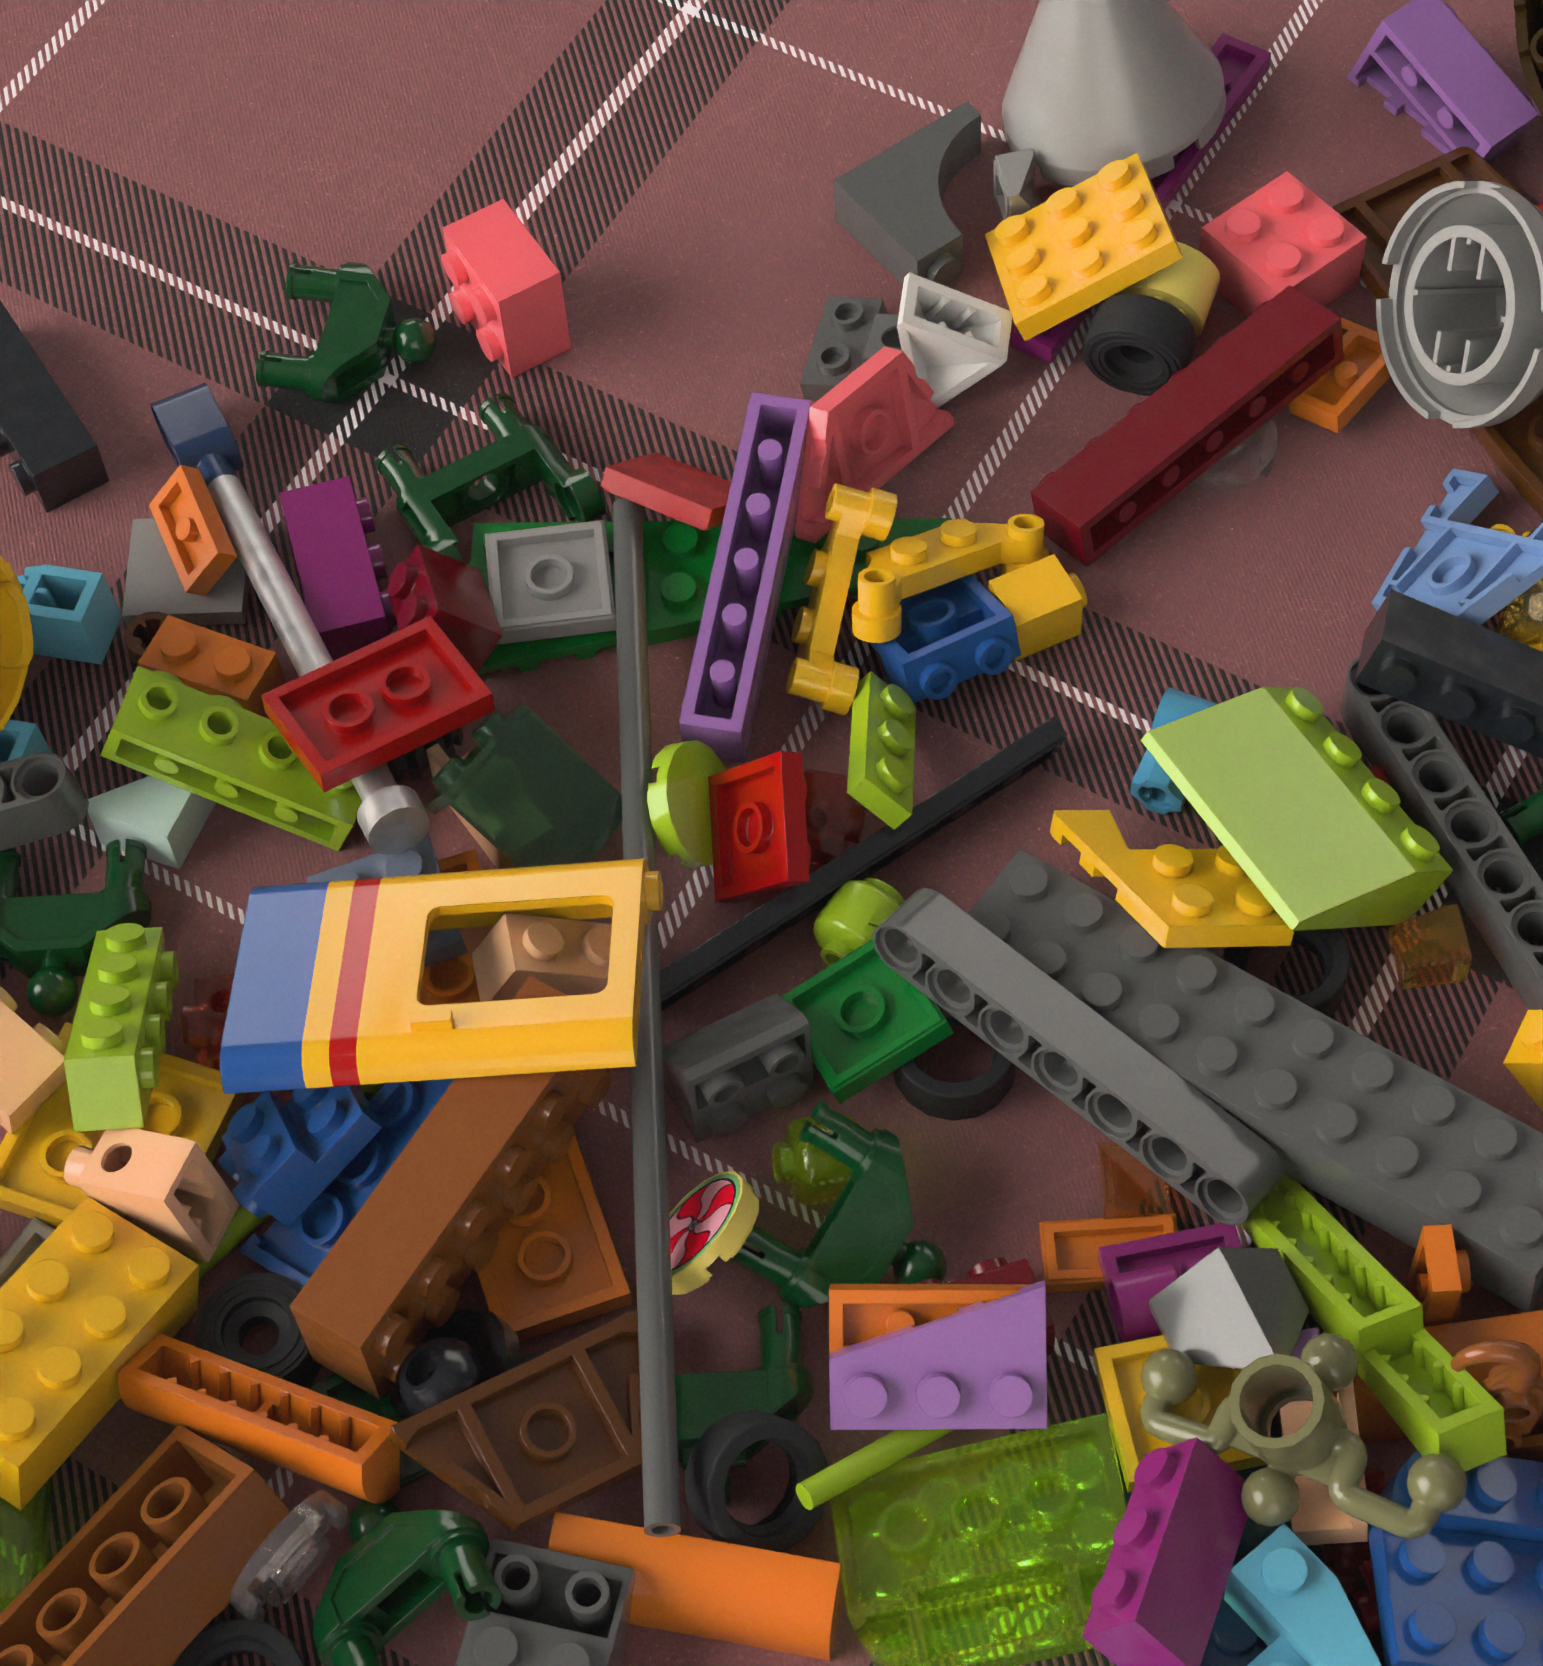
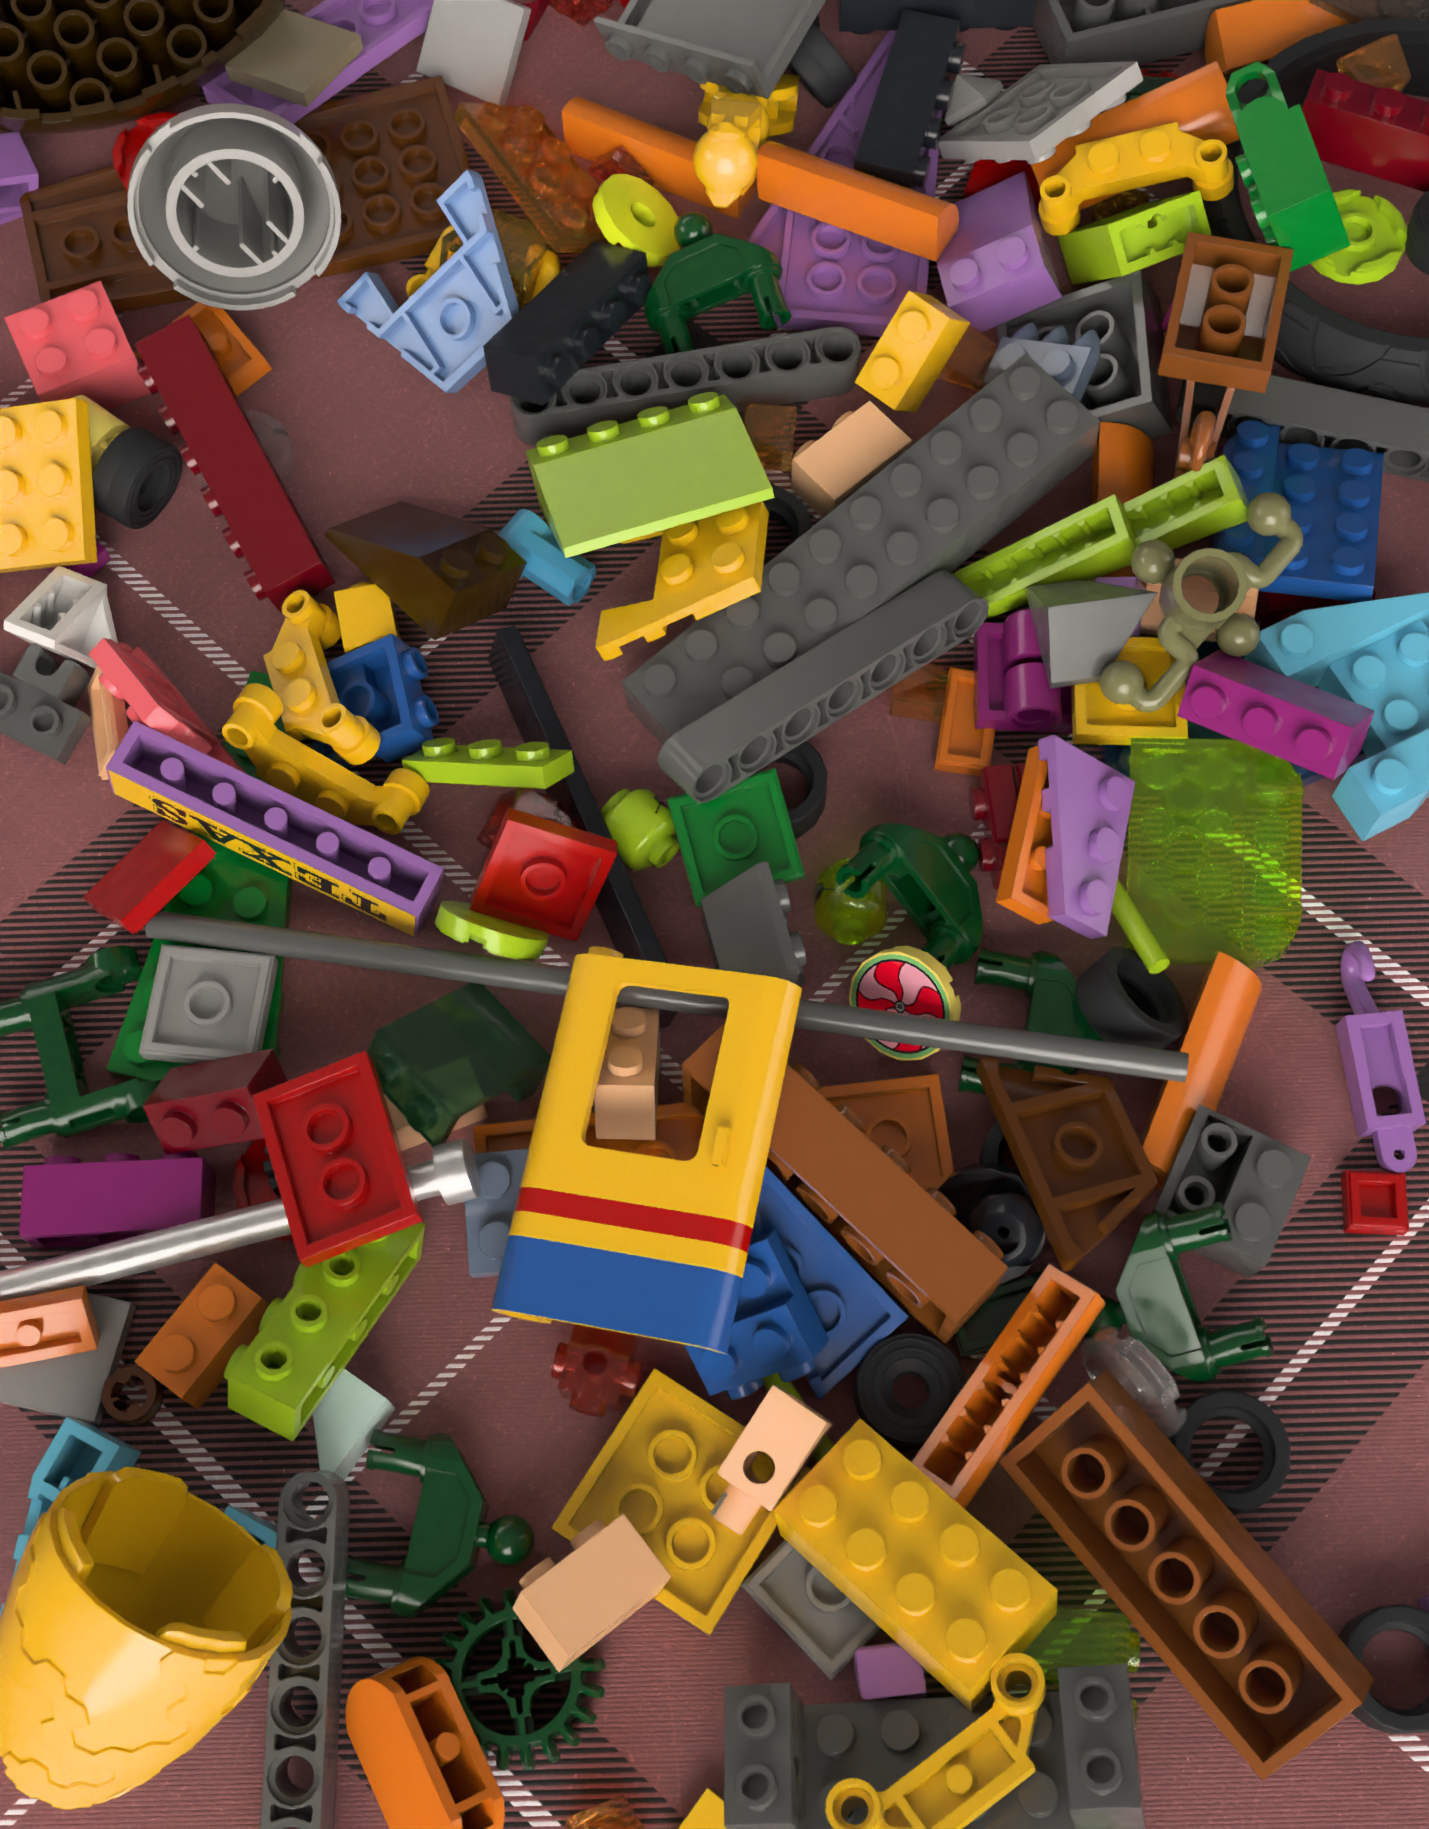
camera: 80 degrees left, 10 degrees up
(120, 1028) = (606, 1456): lime brick -> none
(1120, 634) = (432, 564): none -> dark brown slope
(1427, 1027) = (846, 457): none -> light nougat brick
(1439, 1275) = (1066, 491): orange plate -> none

